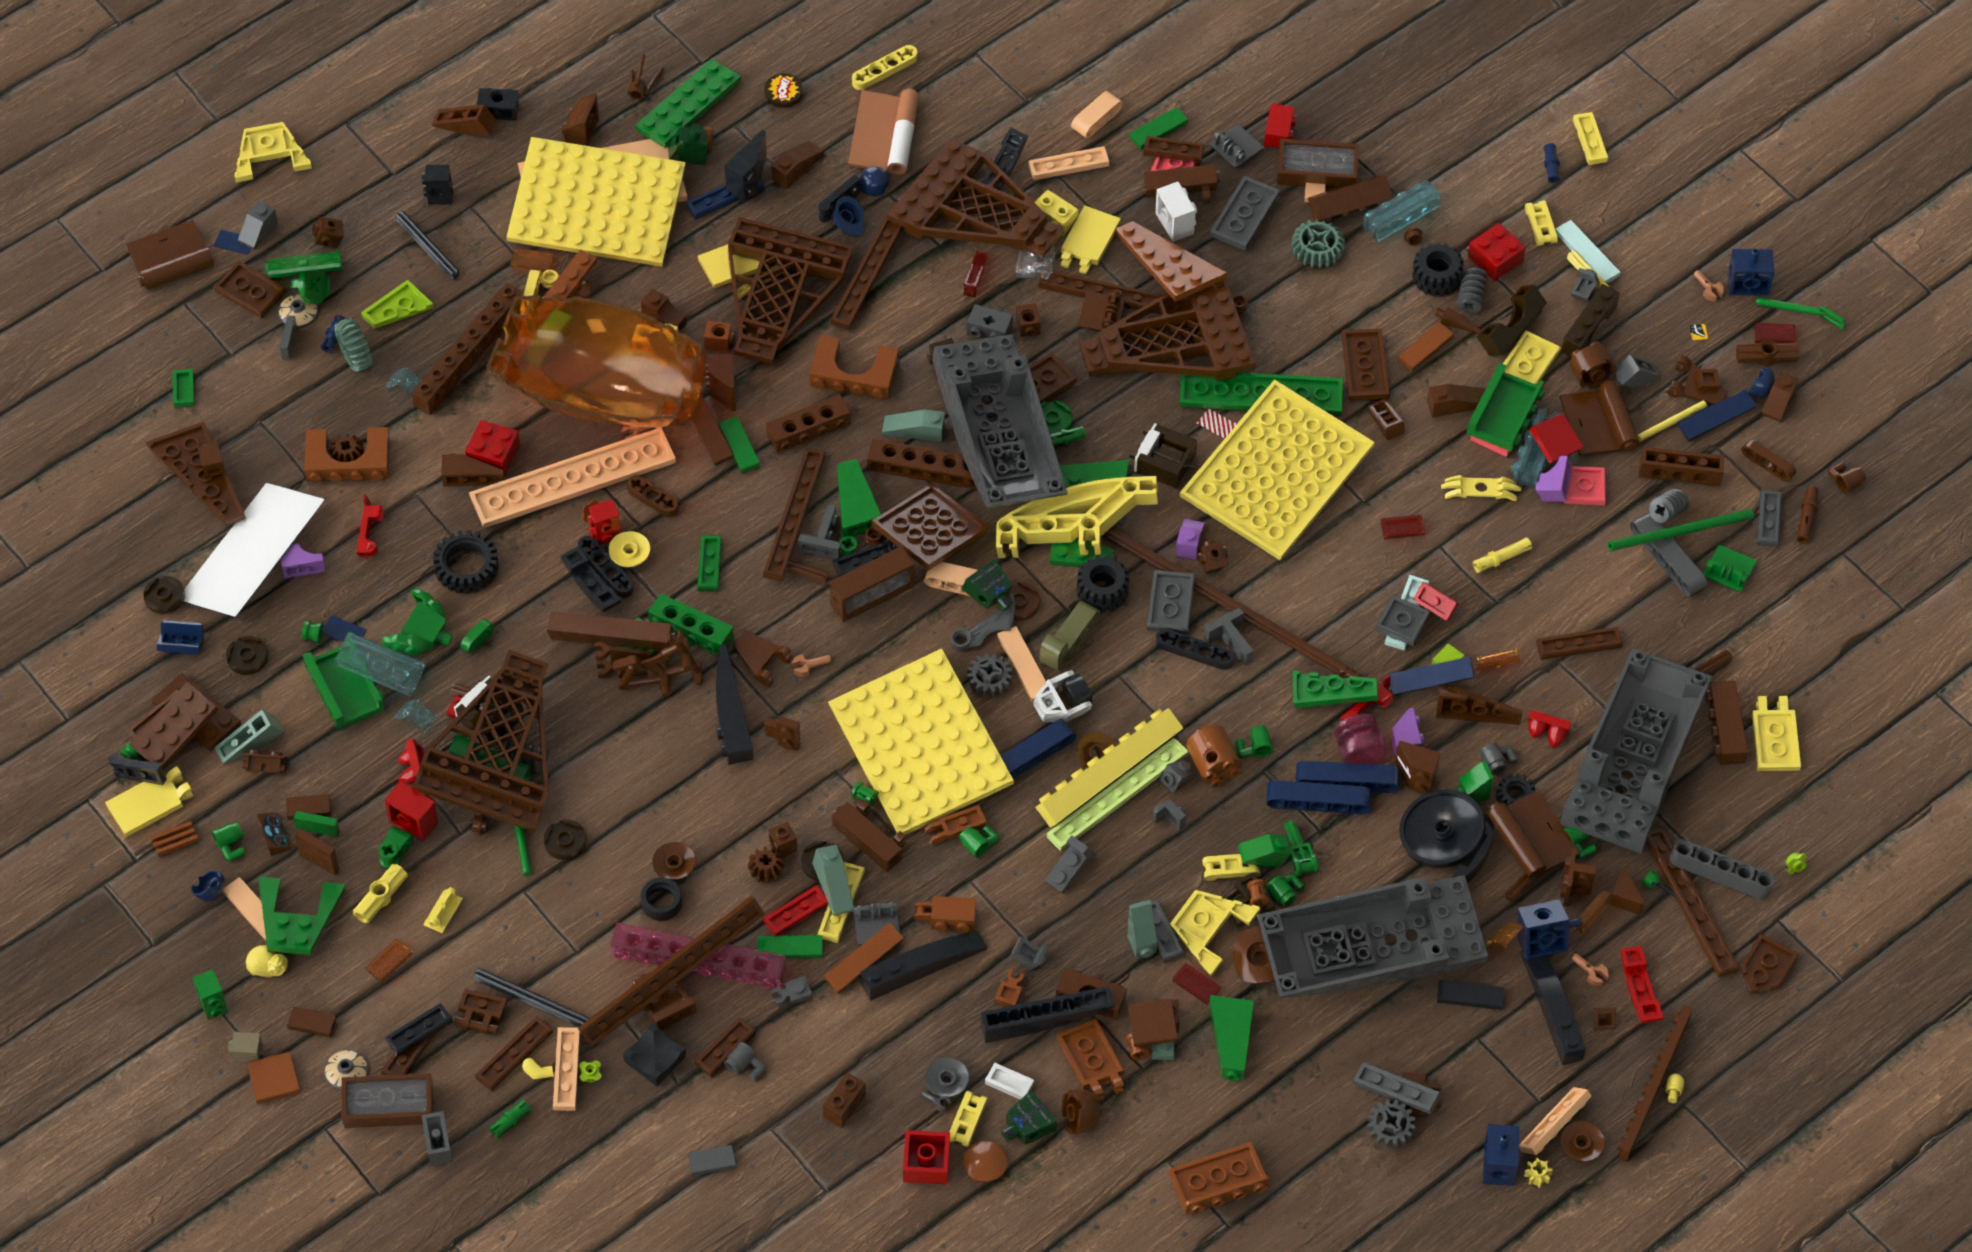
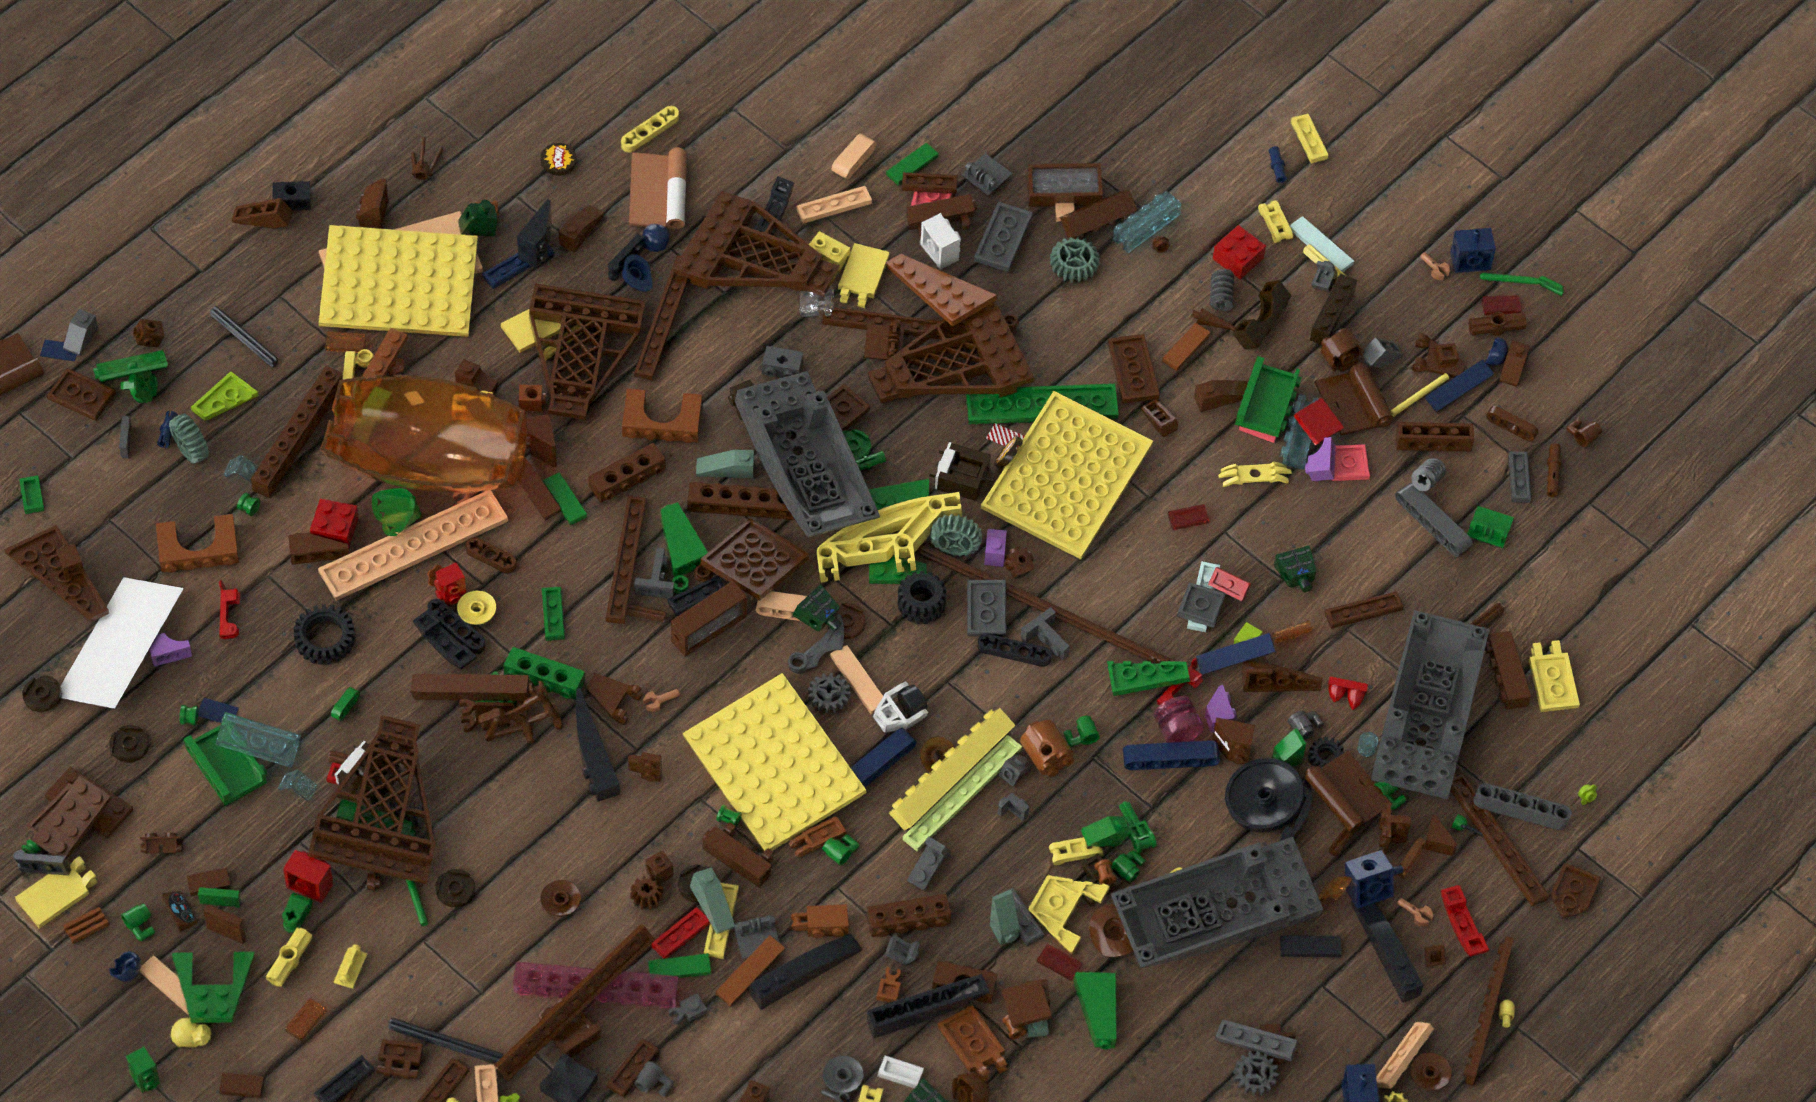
camera: 10 degrees left, 0 degrees up
(180, 637) = (64, 733): dark blue bracket -> none
(252, 735) = (146, 819): sand green slope -> none
(268, 143) = (78, 253): light yellow wing -> none
(304, 314) = (137, 412): tan dish -> none
(346, 448) = (196, 538): reddish brown gear -> none
(406, 419) = (248, 504): none -> green wheel
(412, 755) = (302, 823): red tile -> none
(422, 628) = (293, 701): green torso -> none
(437, 184) = (246, 278): black brick -> none
(563, 436) = (398, 509): none -> green piece
(661, 913) = (557, 921): black tyre -> none
(688, 102) = (471, 179): green plate -> none
(975, 274) = (762, 317): clear red piece -> none
(1028, 313) = (815, 350): reddish brown brick -> none
(1041, 917) = (909, 915): none -> reddish brown brick
(1059, 648) = (892, 658): olive beam -> none
(1148, 521) = (956, 535): none -> sand green gear
(1216, 440) = (1008, 452): none -> dark brown tile
(1279, 125) = (1024, 151): red brick -> none
(1318, 797) = (1147, 777): dark blue beam -> none
(1437, 257) = (1188, 262): black tyre -> none
(1497, 557) = (1277, 538): light yellow pin -> none
(1512, 591) = (1296, 567): none -> dark green torso
(1531, 357) = (1284, 348): light yellow tile -> none
(1562, 780) = (1365, 739): none -> clear light blue wheel
(1680, 530) = (1441, 496): green piece -> none
(1698, 332) = (1432, 309): sticker -> none

